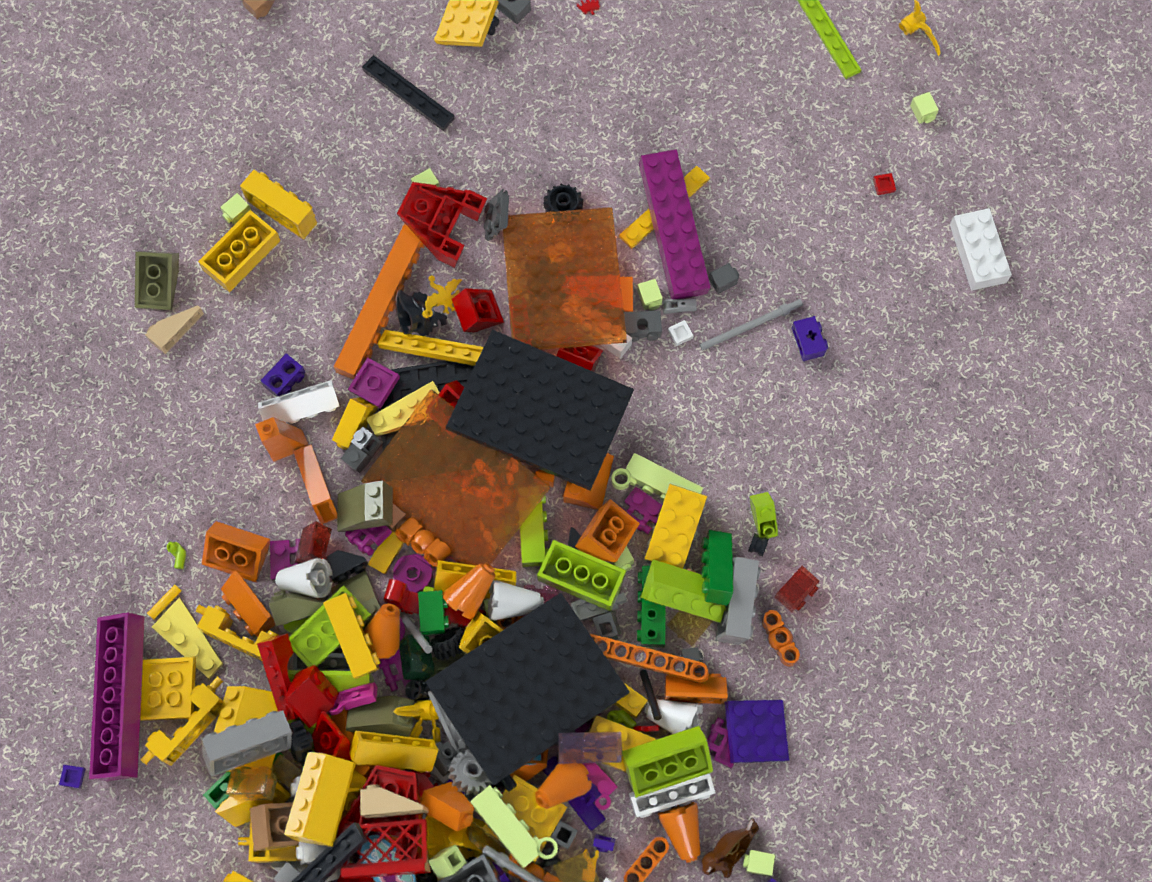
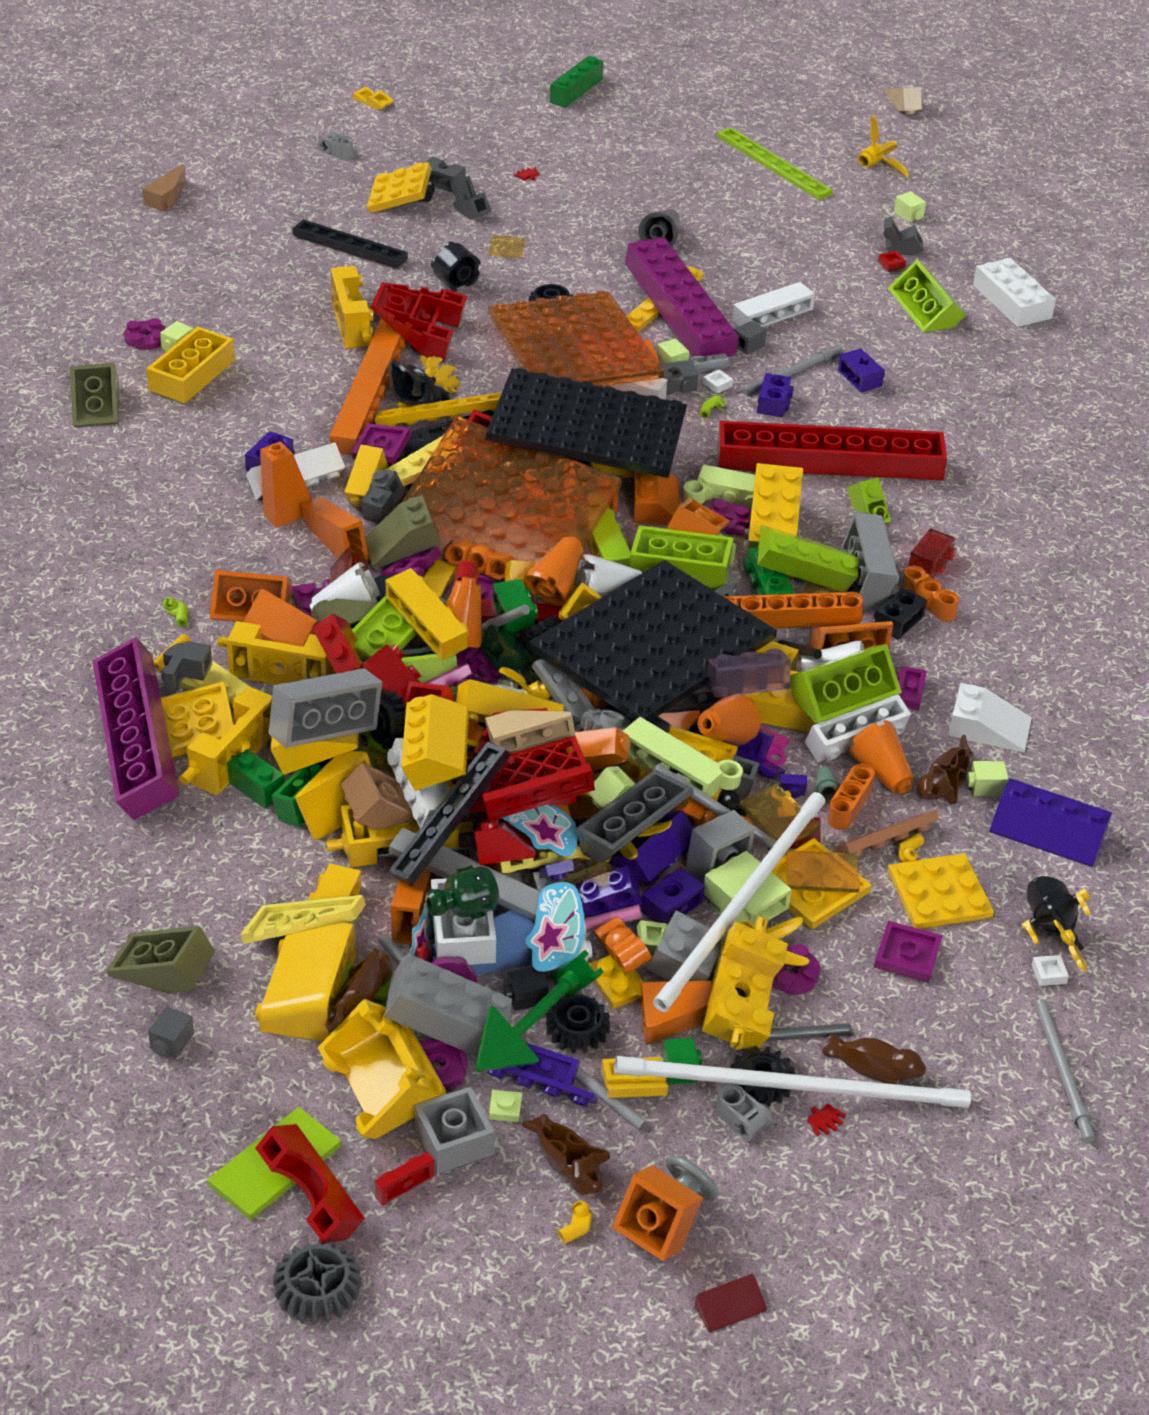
camera: 15 degrees left, 30 degrees down
(72, 776) = (88, 816): dark purple plate -> none
(165, 628) = (185, 660): none -> dark grey brick
(171, 329) = (124, 432): tan slope -> none
(195, 761) = (254, 777): none -> green brick
(205, 188) = (135, 334): none -> magenta plate
(252, 783) = (339, 753): clear yellow brick -> none
(279, 204) = (246, 324): yellow brick -> none
(386, 173) = (350, 308): none -> yellow brick
(477, 309) = (475, 380): red slope -> none
(489, 148) = (456, 266): none -> black brick
(496, 215) = (480, 310): dark grey plate -> none
(524, 48) = (467, 201): none -> dark grey brick
(545, 111) = (506, 246): none -> clear yellow piece
(632, 843) = (826, 783): none -> sand green cone
(666, 361) = (707, 406): none -> lime arm
(686, 113) = (660, 225): none -> dark grey cone
(717, 567) = (836, 532): green brick -> none
(719, 360) = (775, 395): none -> dark purple brick
(750, 447) = (833, 449): none -> red brick
(751, 662) = (903, 610): none -> black brick
(756, 237) = (774, 305): none -> white brick
(756, 731) = (933, 665): dark purple plate -> none
(783, 796) = (988, 719): none -> white slope
(898, 246) = (926, 299): none -> lime slope
(900, 159) = (904, 242): none -> dark grey brick

